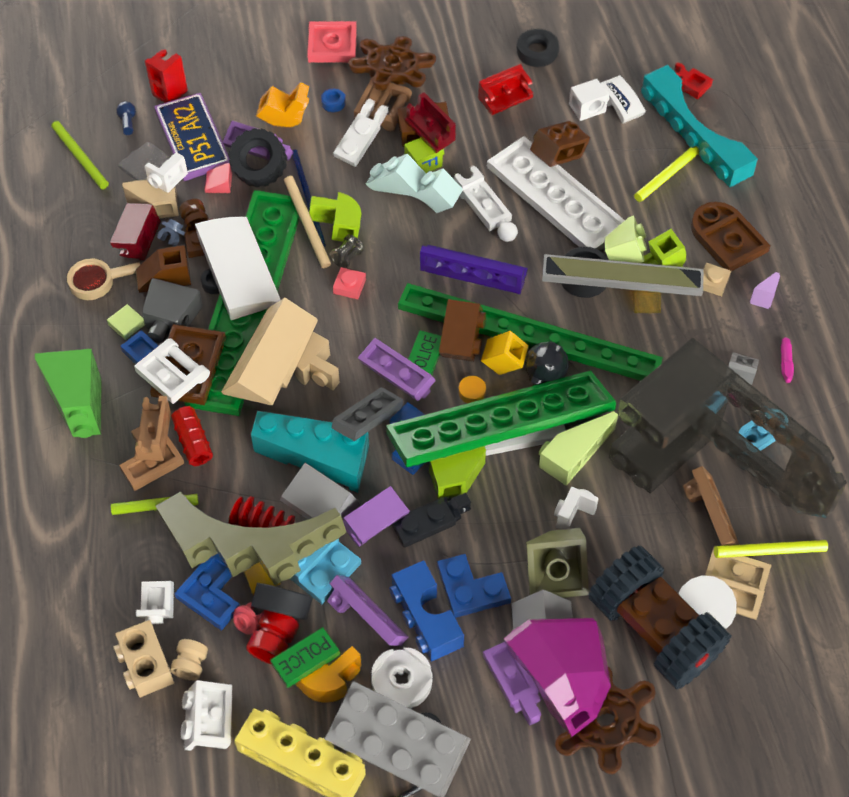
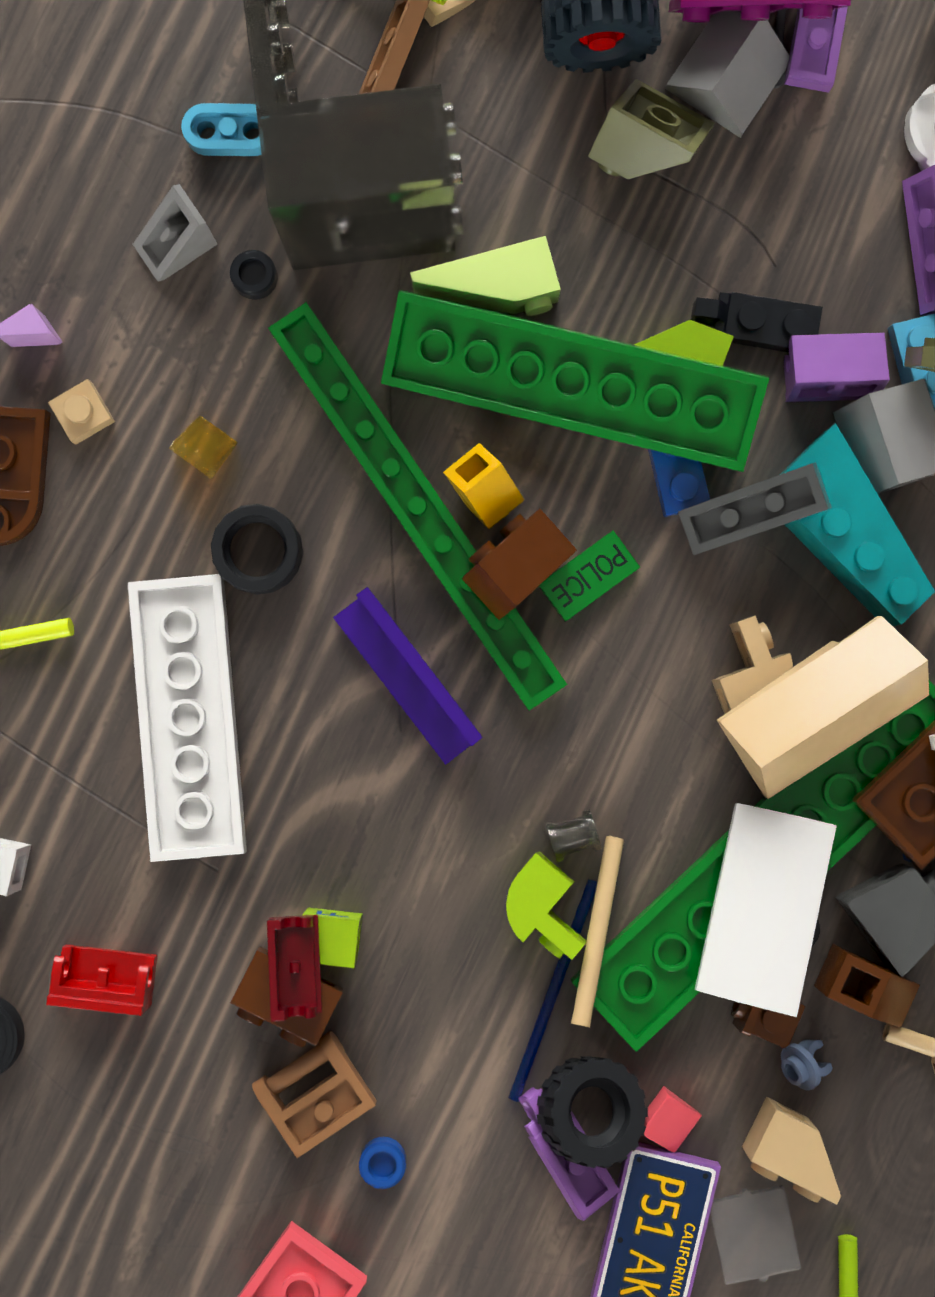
camera: 145 degrees left, 30 degrees up
(136, 230) = (860, 1102): hinge -> none
(168, 174) = (763, 1159): white bracket -> none
(192, 212) = (755, 1066): reddish brown wheel -> none
(283, 109) = (480, 1196): light orange brick -> none
(349, 283) = (604, 781): coral plate -> none
(360, 134) = (397, 1049): white hinge -> none
(397, 369) = (649, 573): medium lavender hinge -> none
(404, 62) = (220, 1189): reddish brown plate -> none
(406, 177) = (386, 887): light aqua arch -> none
(435, 633) = (870, 150): blue arch -> none
(470, 594) = (787, 184): blue plate -> none
(472, 389) = (561, 476): light orange tile -> none
(487, 205) = (305, 774): white plate -> none
(546, 362) = (442, 432): black helmet -> none
(559, 143) = (112, 800): reddish brown brick -> none
(575, 500) = (575, 200): white bracket -> none
(623, 275) = (219, 487): tile -> none
(626, 242) = (167, 545): yellowish green slope -> none
(666, 250) = (142, 483): lime brick -> none
(787, 365) = (102, 208): dark pink piece -> none

